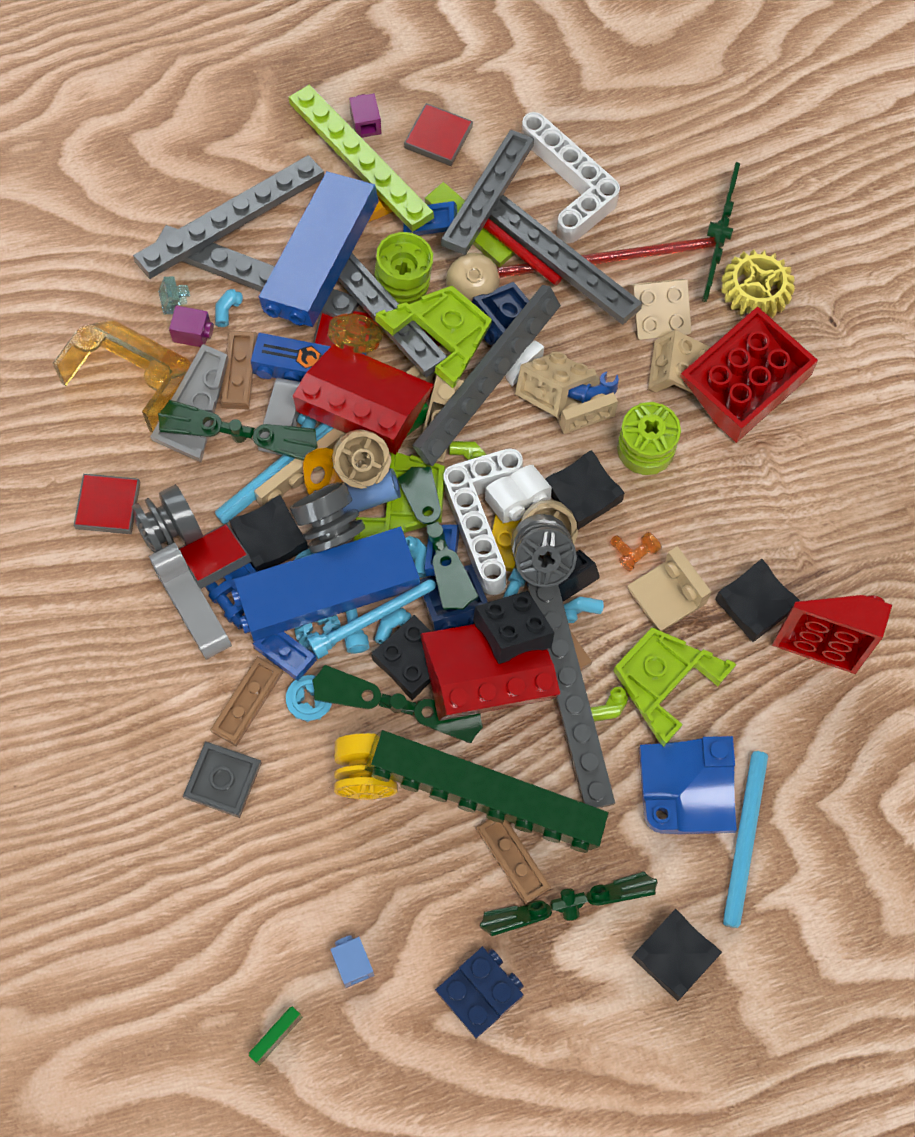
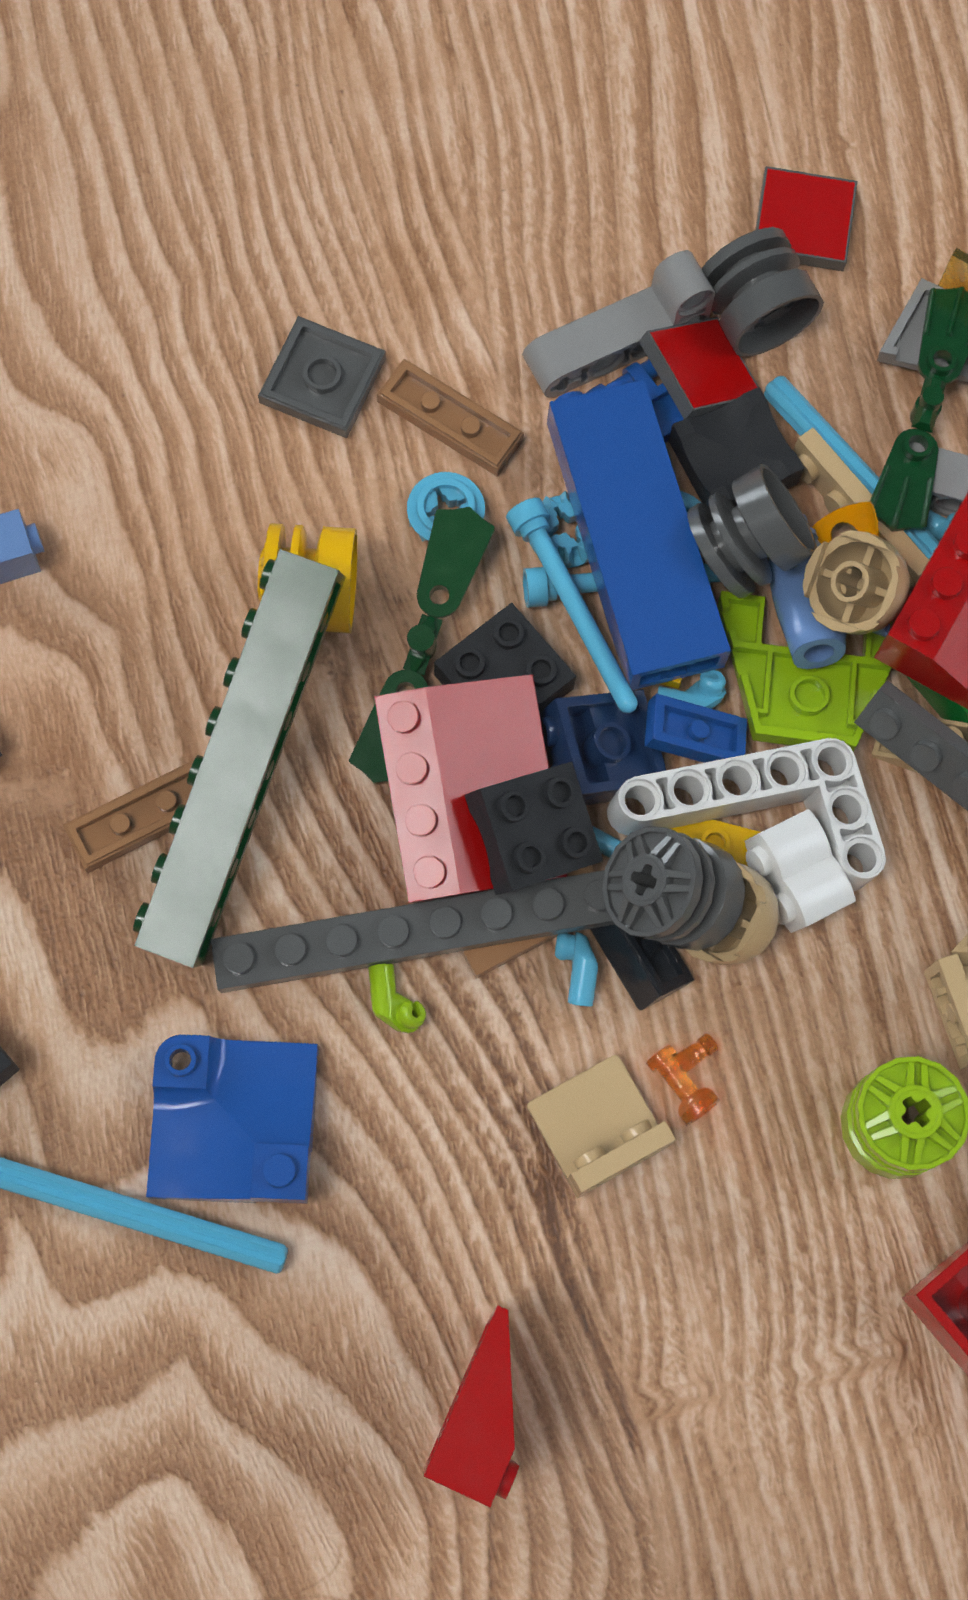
camera: 90 degrees right, 5 degrees up
(286, 654) = (522, 472): blue plate -> none
(389, 622) = (569, 642): medium azure arm -> none
(452, 580) = (628, 730): piece -> none
(466, 448) = (895, 796): lime arm -> none
(515, 917) = (63, 986): dark green piece -> none
(585, 489) = (804, 991): black brick -> none
(656, 669) = (453, 1087): lime wing -> none
(756, 600) = (572, 1290): black brick -> none

